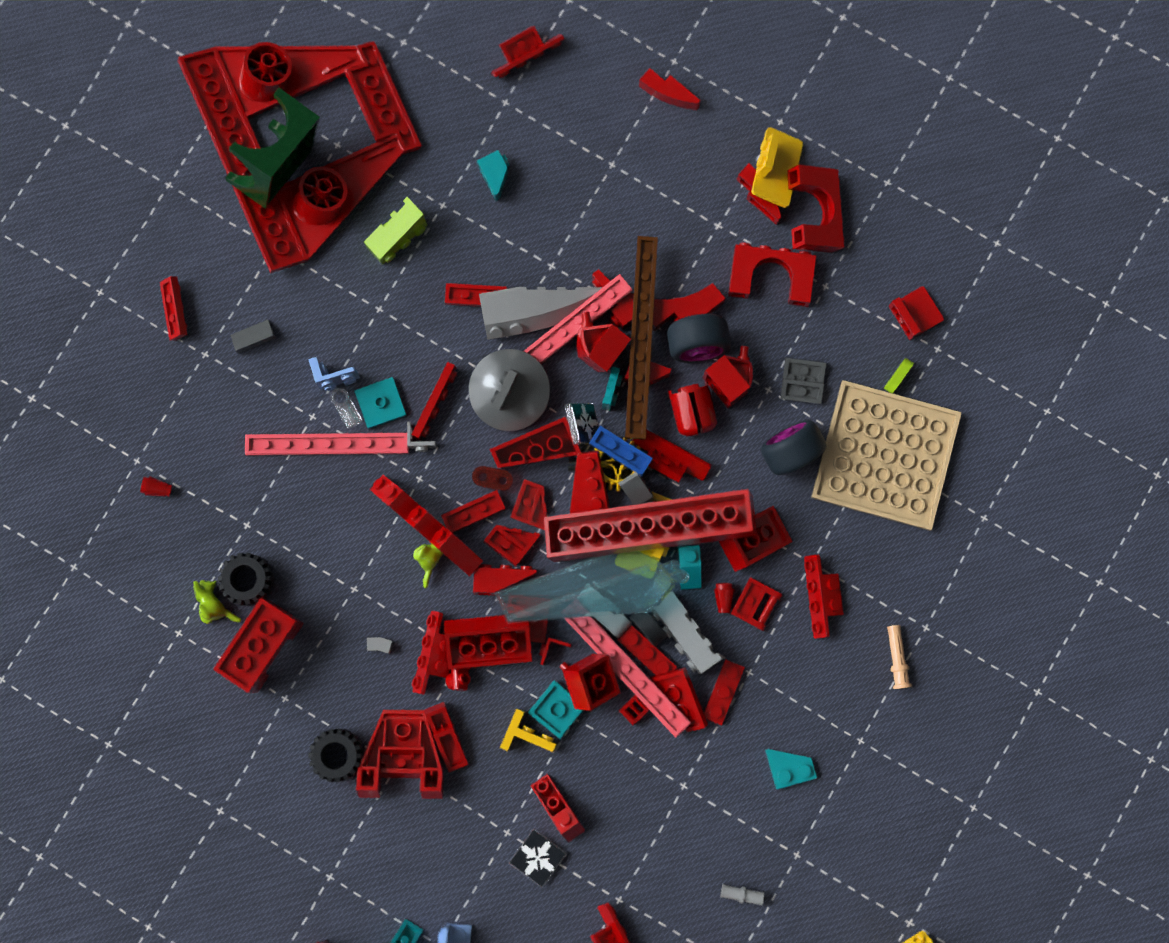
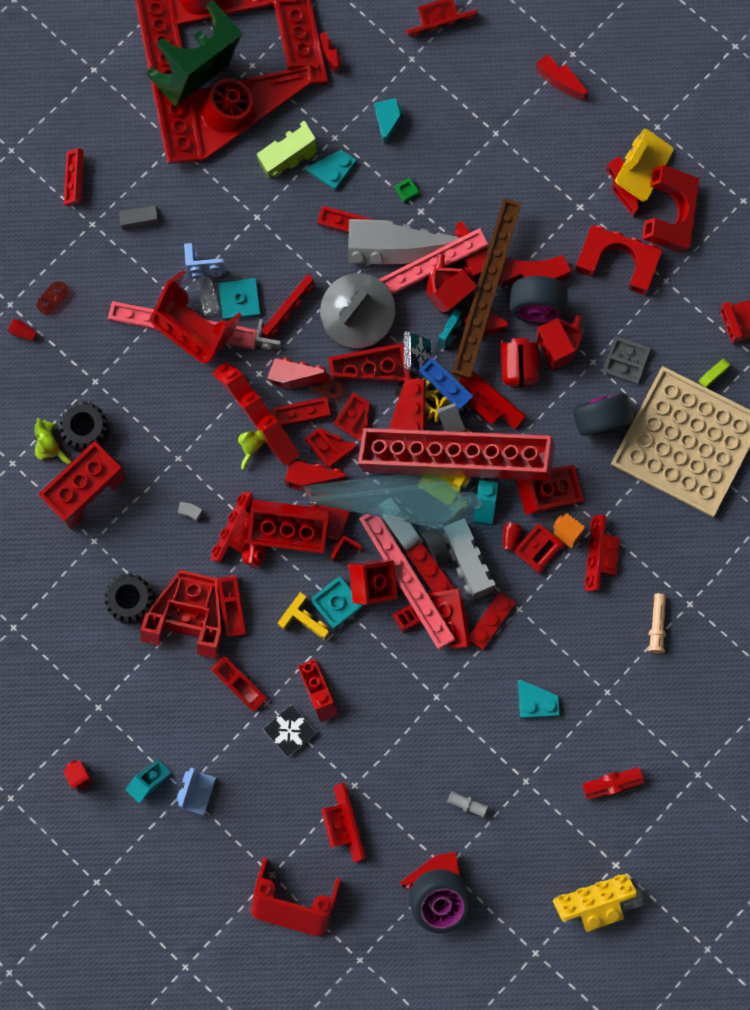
camera: 15 degrees right, 5 degrees down
(181, 445) = (52, 297): none -> clear red plate
(331, 446) = (187, 327): none -> red windscreen
(419, 118) = (330, 54): none -> red slope
(448, 240) = (332, 169): none -> teal wing
(454, 475) = (292, 375): none -> slope
(472, 819) = (238, 683): none -> red slope
(531, 246) = (406, 190): none -> green tile
(783, 579) = (568, 530): none -> orange brick
(888, 839) = (612, 783): none -> red piece

